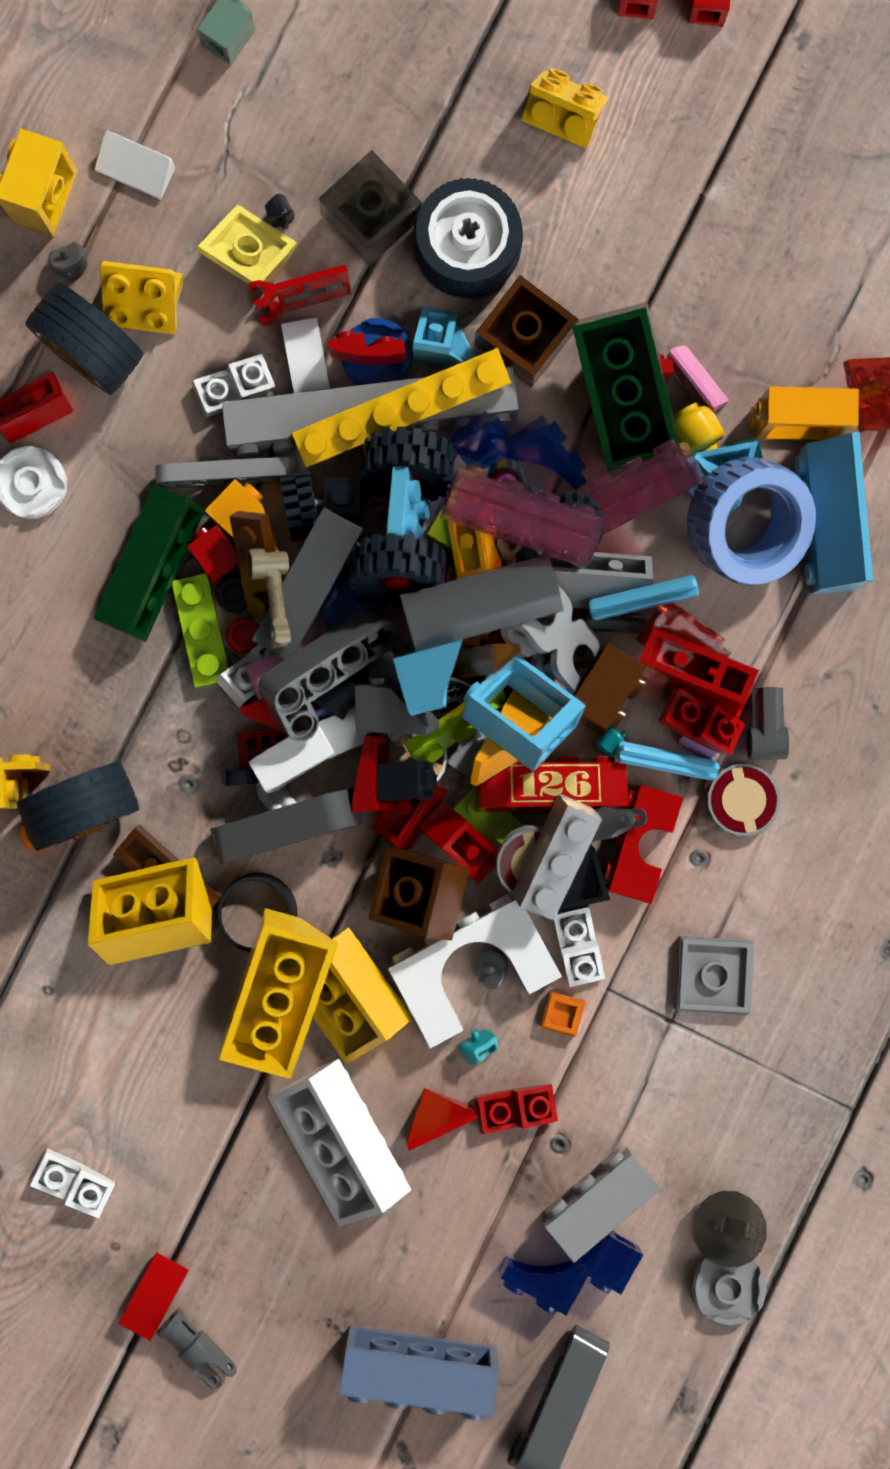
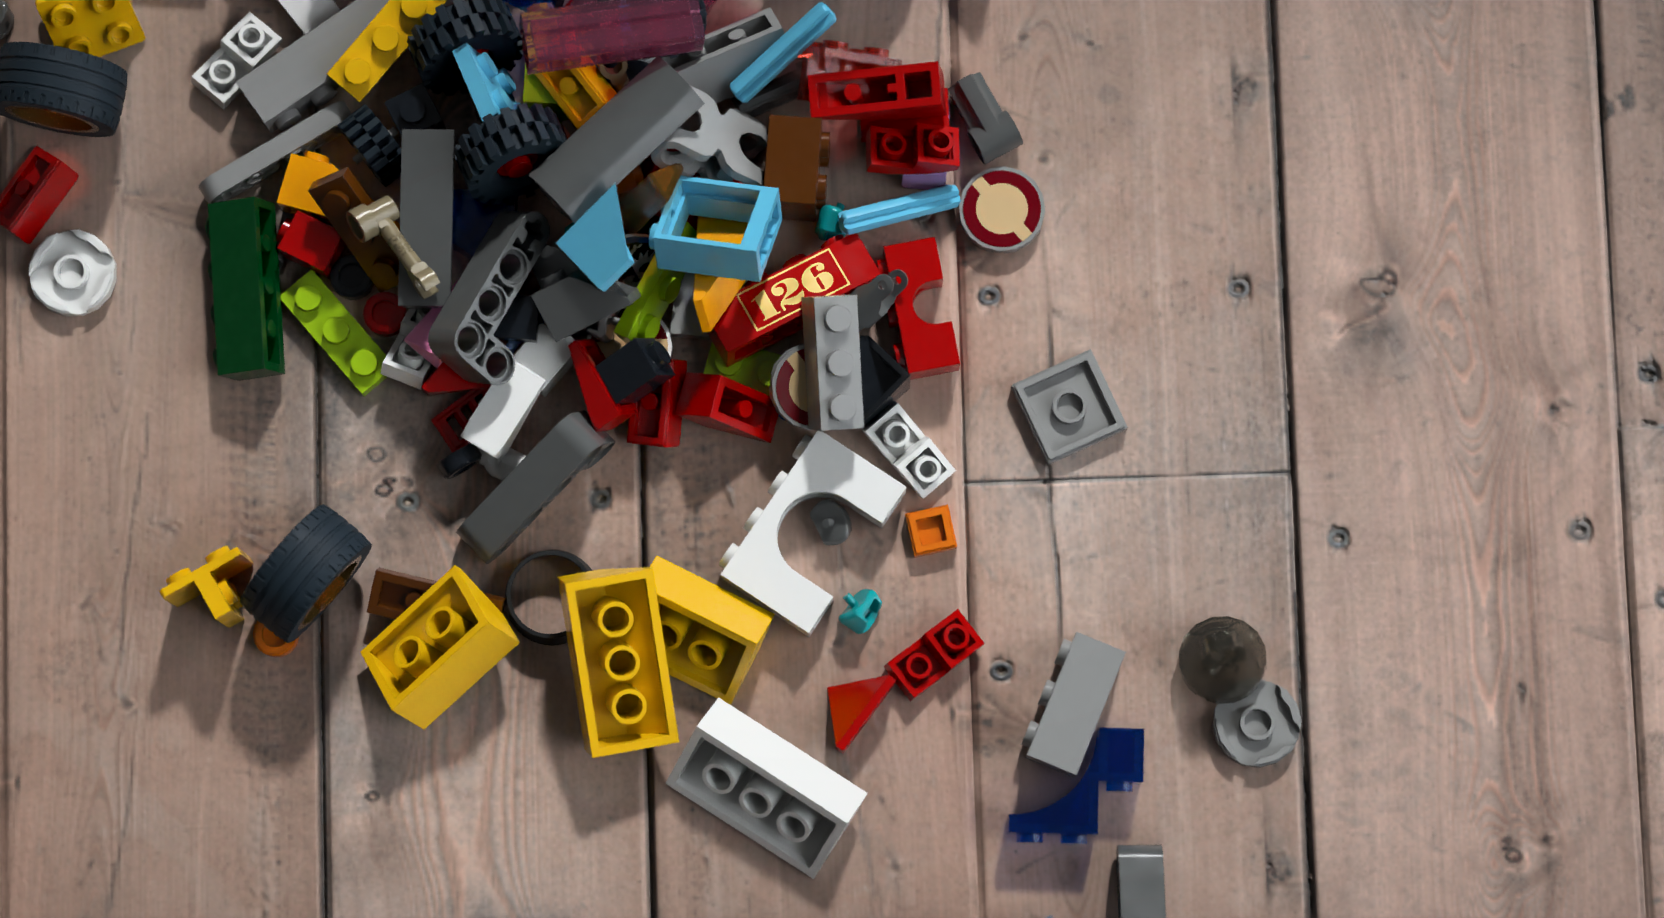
camera: 20 degrees left, 5 degrees down
(418, 893) = (711, 478): reddish brown brick -> none

